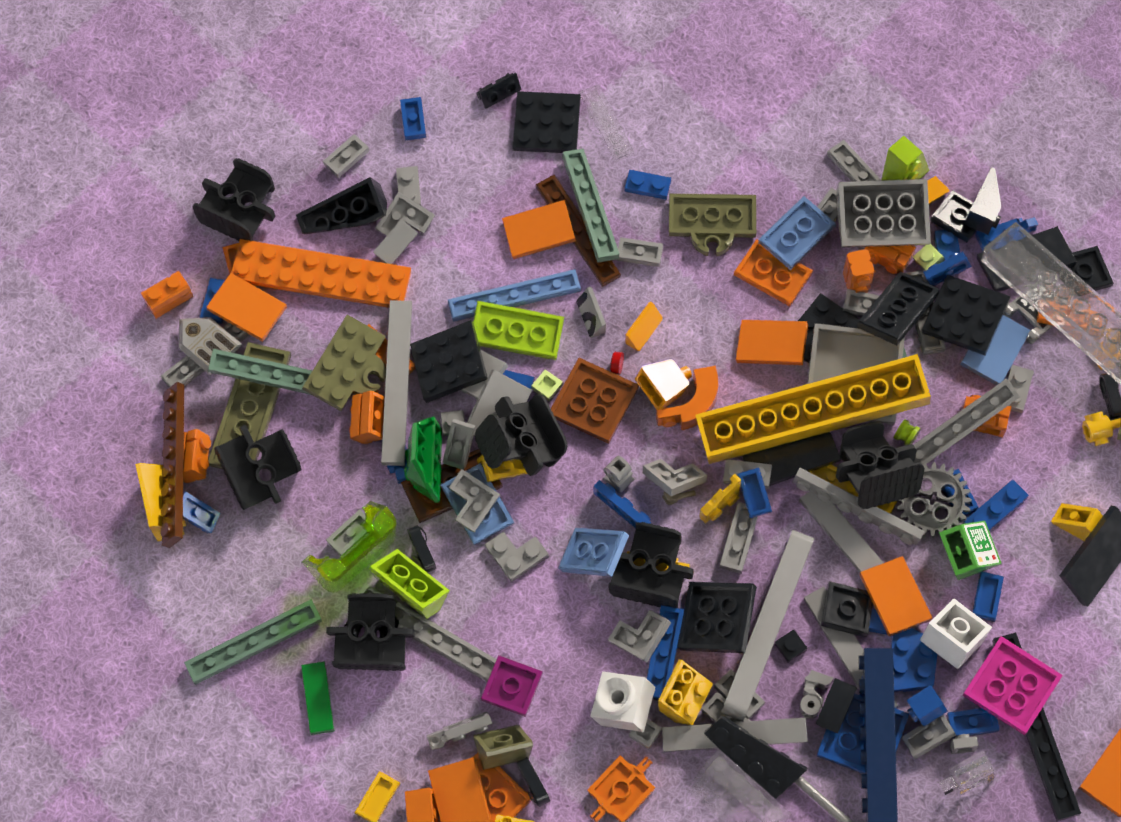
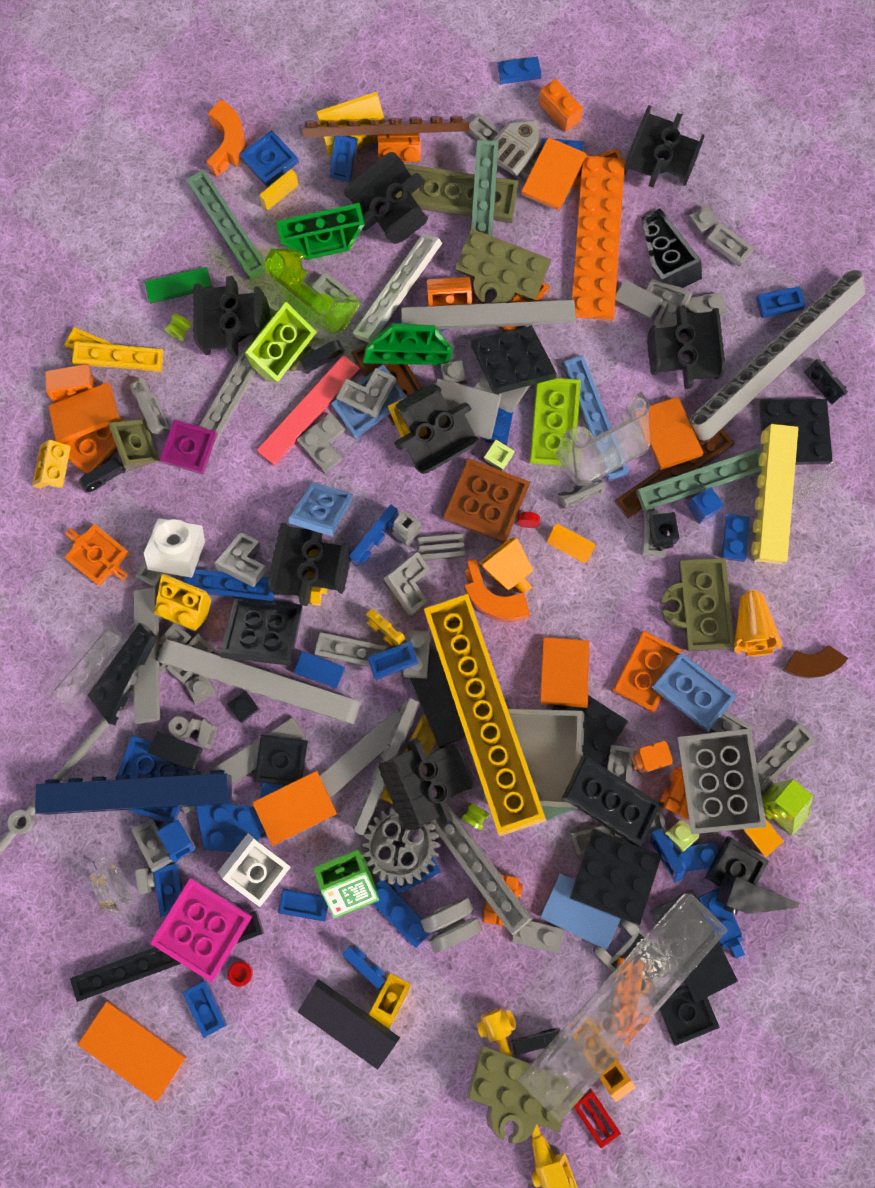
camera: 85 degrees right, 10 degrees up
(114, 334) = (519, 70): none -> blue plate
(145, 628) = (227, 121): none -> orange arch
(179, 594) = (269, 158): none -> blue plate
(220, 583) = (279, 189): none -> yellow tile
(278, 536) = (322, 231): none -> green wedge
(314, 177) = (703, 220): none -> light grey plate
(353, 469) = (397, 288): none -> white plate
(369, 696) = (178, 327): none -> lime wheel
(397, 763) = (117, 356): none -> yellow tile
(456, 185) = (703, 346): none -> black piece
(458, 444) = (423, 374): light grey plate -> none
(477, 128) = (778, 355): none -> light grey beam
(479, 567) = (307, 411): none -> coral tile
(562, 294) = (593, 458): none -> clear windscreen
(612, 143) = (775, 494): none -> light yellow brick
(616, 204) = (705, 505): none -> blue brick
(636, 247) = (667, 521): none -> black brick
(637, 429) = (442, 538): none -> light grey tile
(736, 174) = (755, 626): none -> light orange cone
(758, 567) = (319, 670): none -> blue tile
(770, 687) = (200, 689): none -> light grey plate
(774, 131) = (815, 665): none -> reddish brown tile
(1009, 456) = (451, 927): none -> light grey wheel
(1050, 533) = (373, 973): none -> blue plate
(1053, 657) = (240, 973): none -> red tile
(1085, 691) = (204, 1008): none -> blue plate

